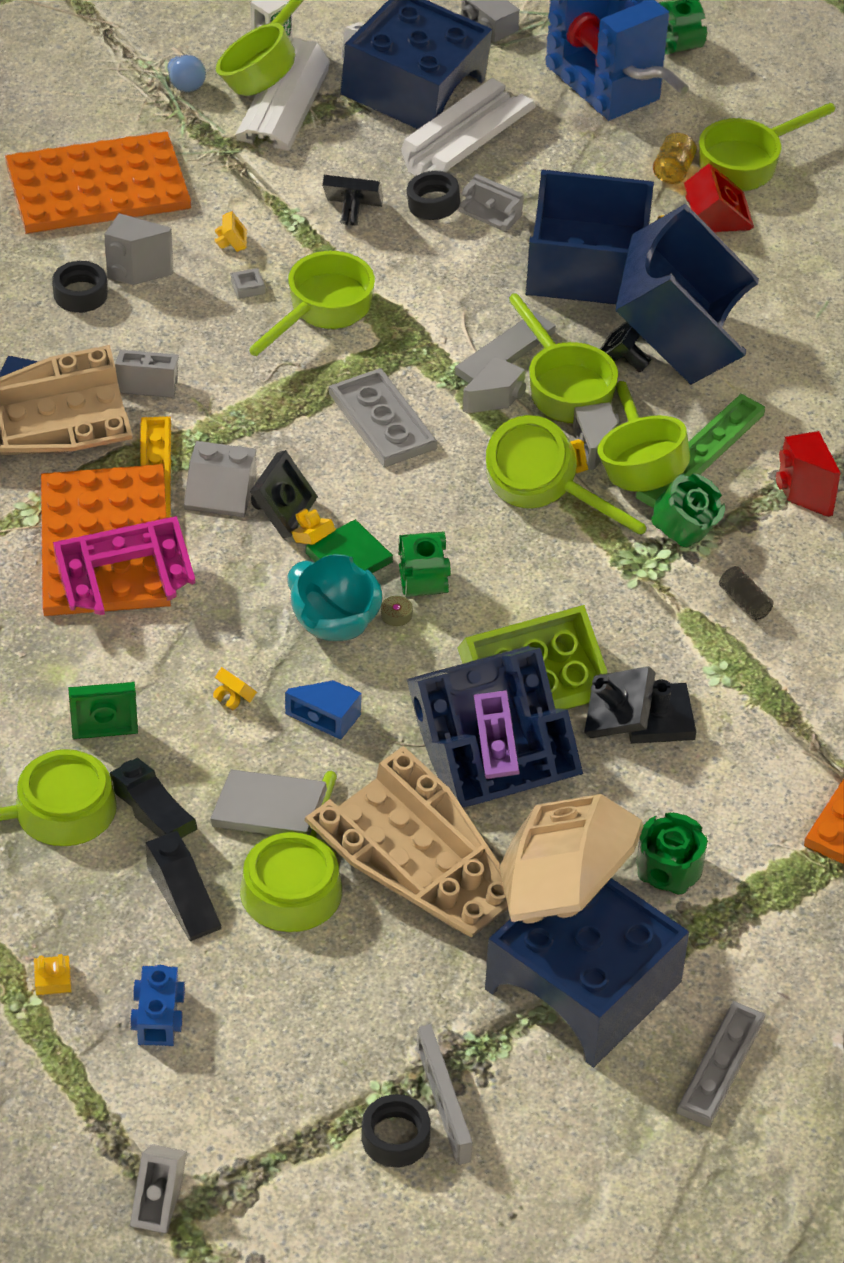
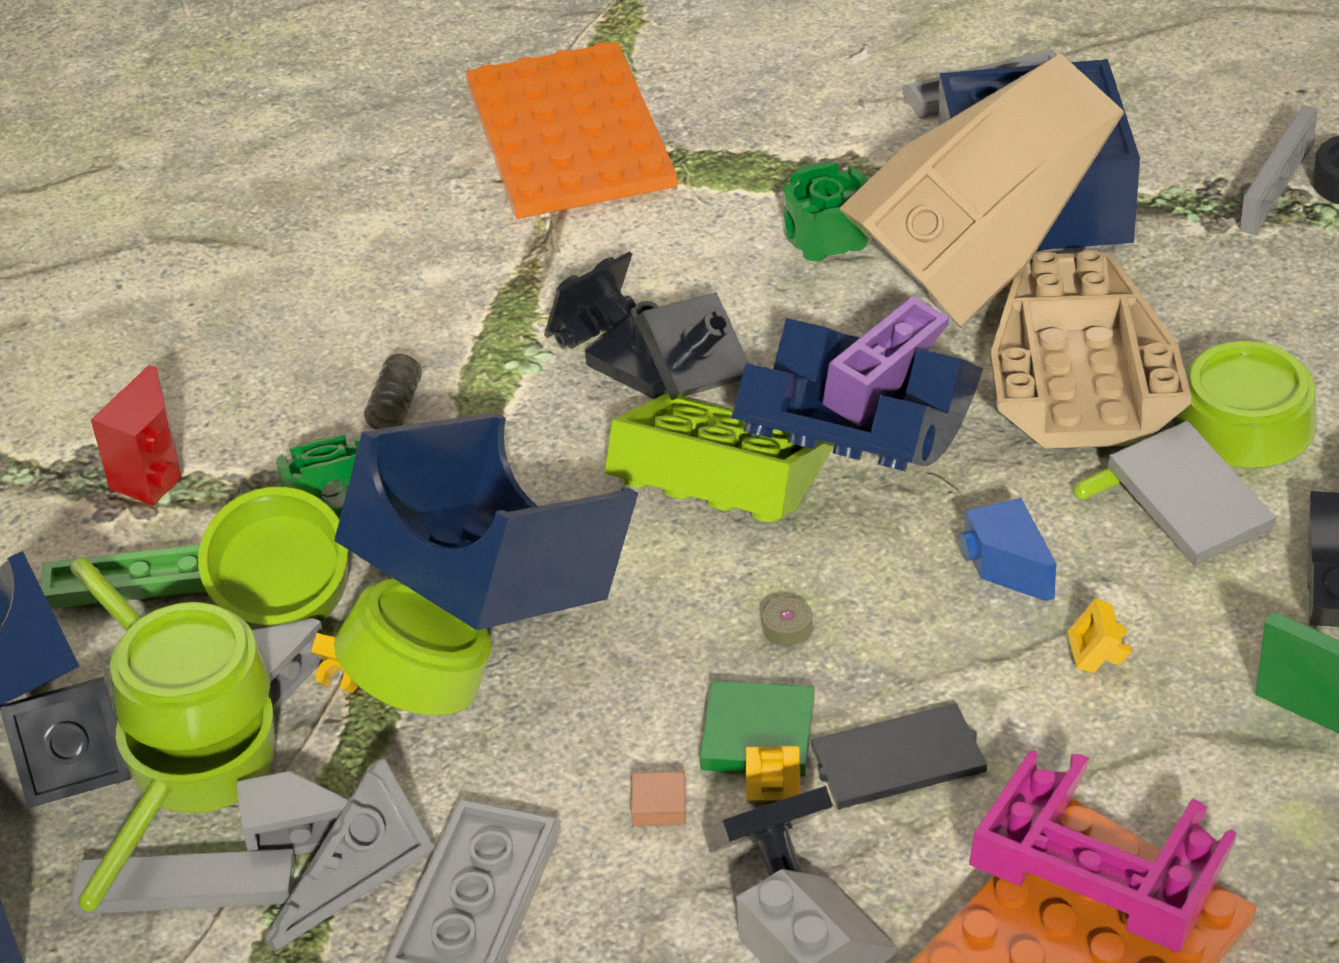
camera: 130 degrees left, 5 degrees down
(266, 591) = (898, 755): none -> black piece
(334, 597) = (873, 626): teal piece -> none
(354, 498) = (658, 798): none -> nougat tile
(423, 564) = (709, 610): green brick -> none
(443, 391) = (364, 848): none -> light grey wing
(563, 507) = (458, 529): none -> dark blue container
(600, 372) = (180, 671): none -> lime piece
(716, 701) = (590, 303): none -> black hinge

